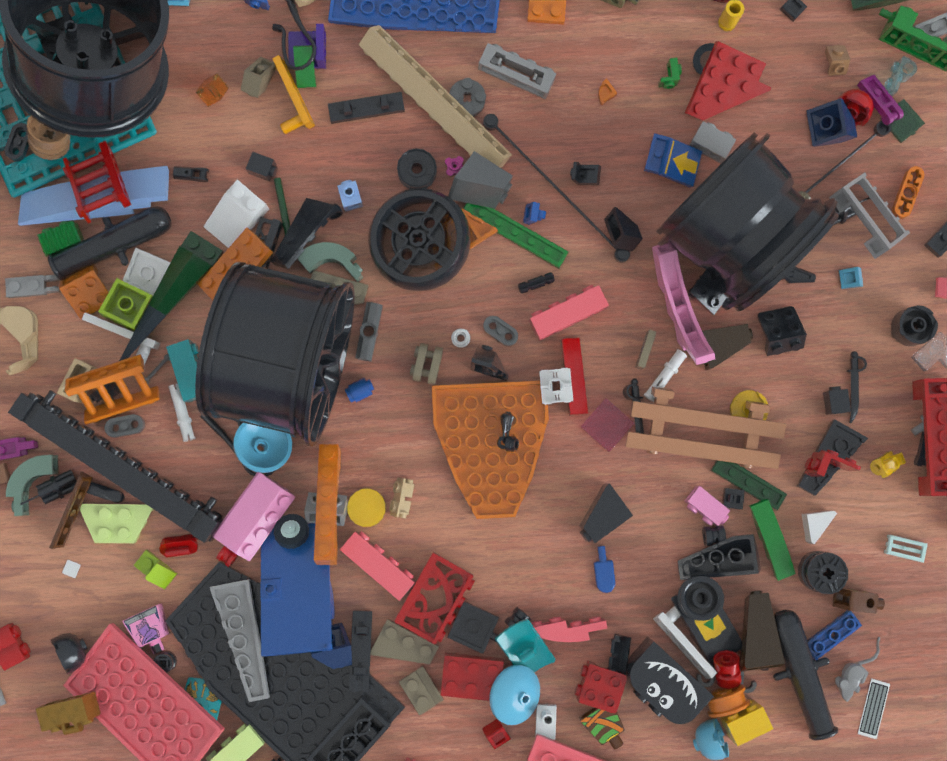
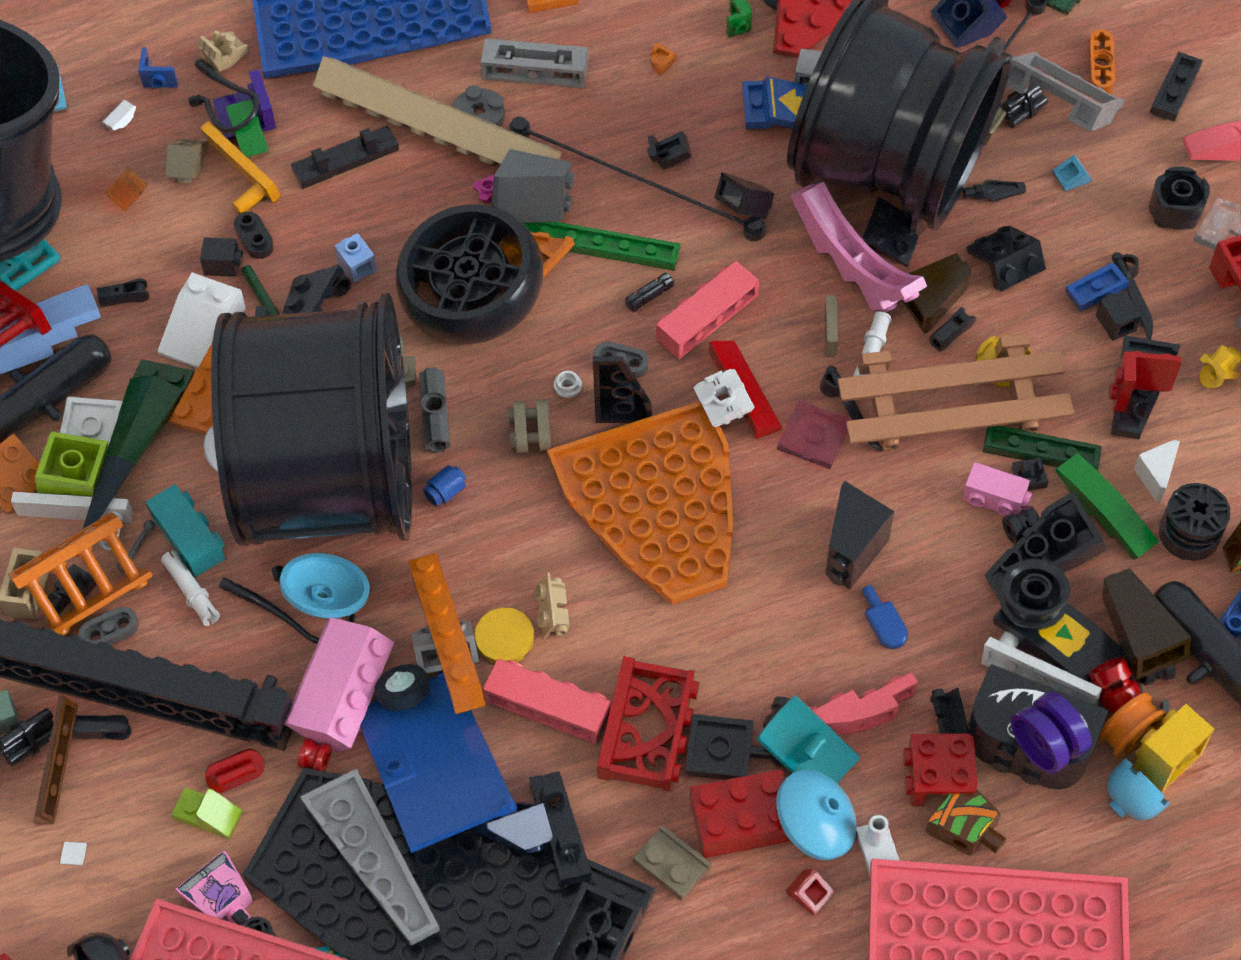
camera: 10 degrees left, 25 degrees down
(115, 521) = (128, 764): yellowish green wing -> none
(223, 24) = (119, 116): none -> white piece
(288, 152) = (252, 233): none -> black plate
(403, 644) = (621, 804): dark tan wing -> none
(414, 158) = (433, 196): black wheel -> none
(510, 442) = (685, 482): black piece -> none
(533, 213) = (615, 211): blue tile -> none
(672, 710) = (1051, 732): none -> dark purple wheel
(722, 376) = (951, 330): none -> black bar
(831, 375) = (1096, 285): none -> blue plate

